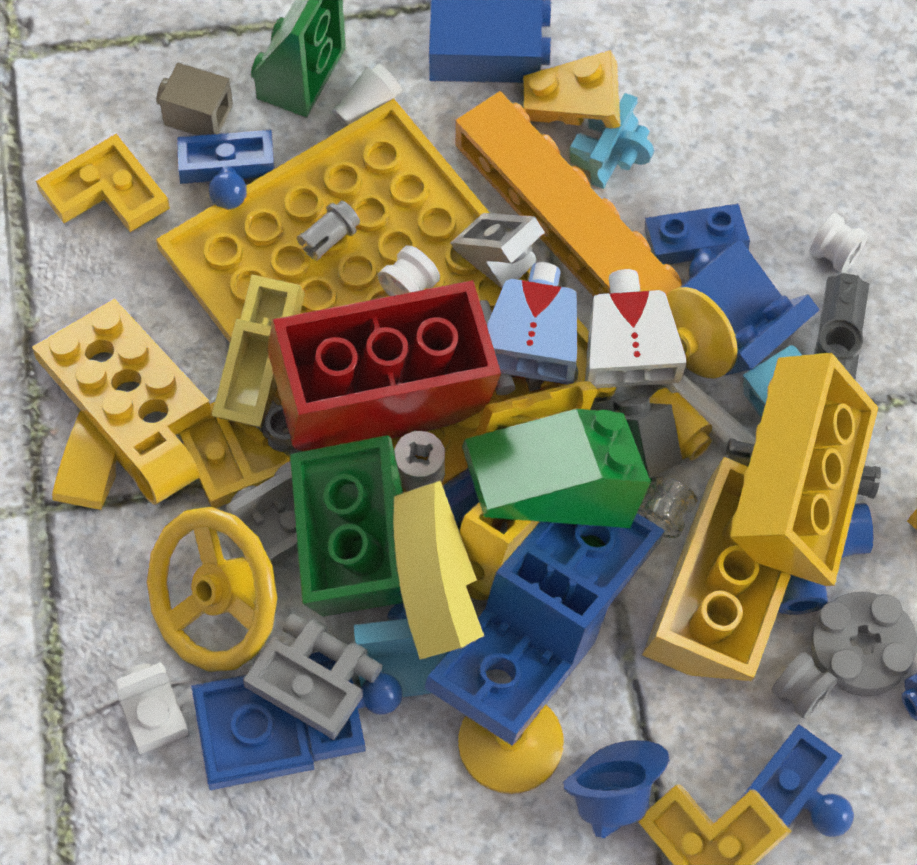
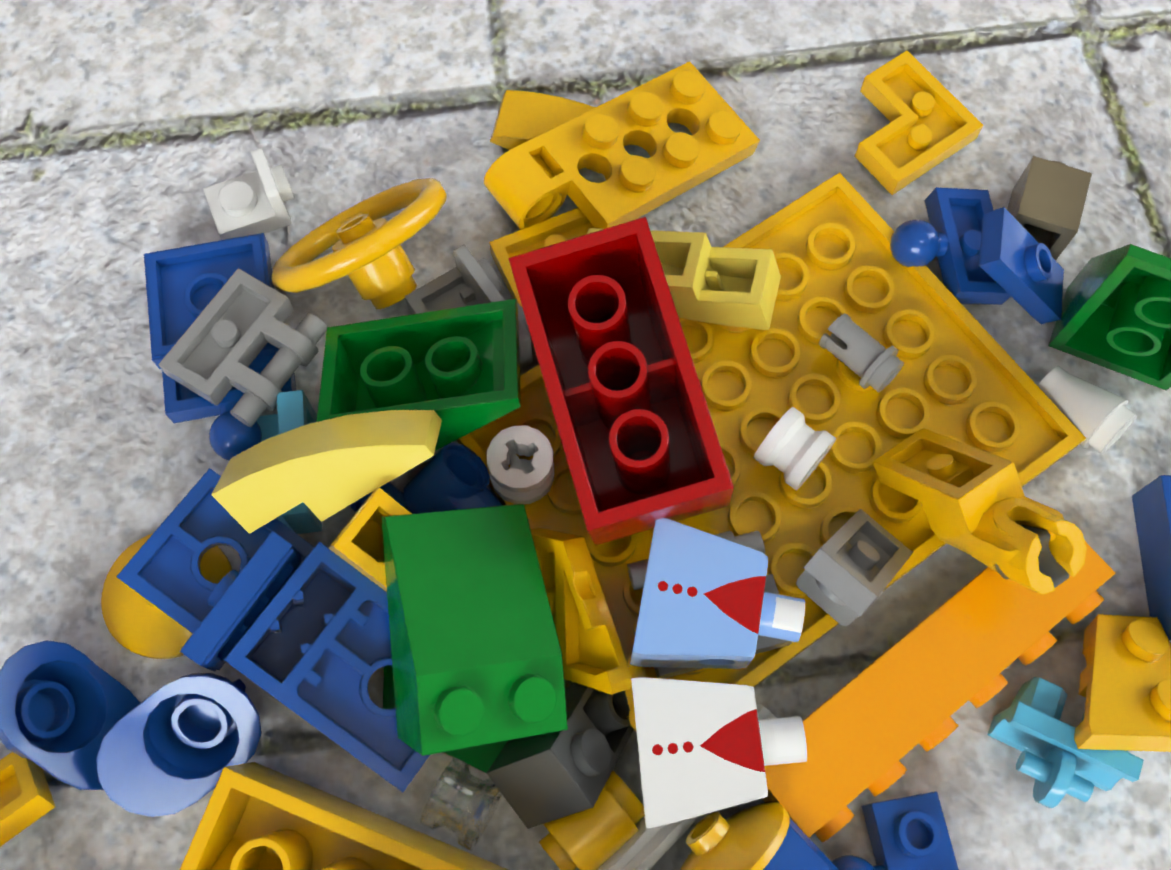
camera: 90 degrees right, 5 degrees up
(254, 119) = (1021, 266): none -> blue plate
(460, 160) = (982, 509): none -> yellow plate
(535, 639) = (240, 601): none -> blue plate
(629, 689) = (177, 744): none -> piece

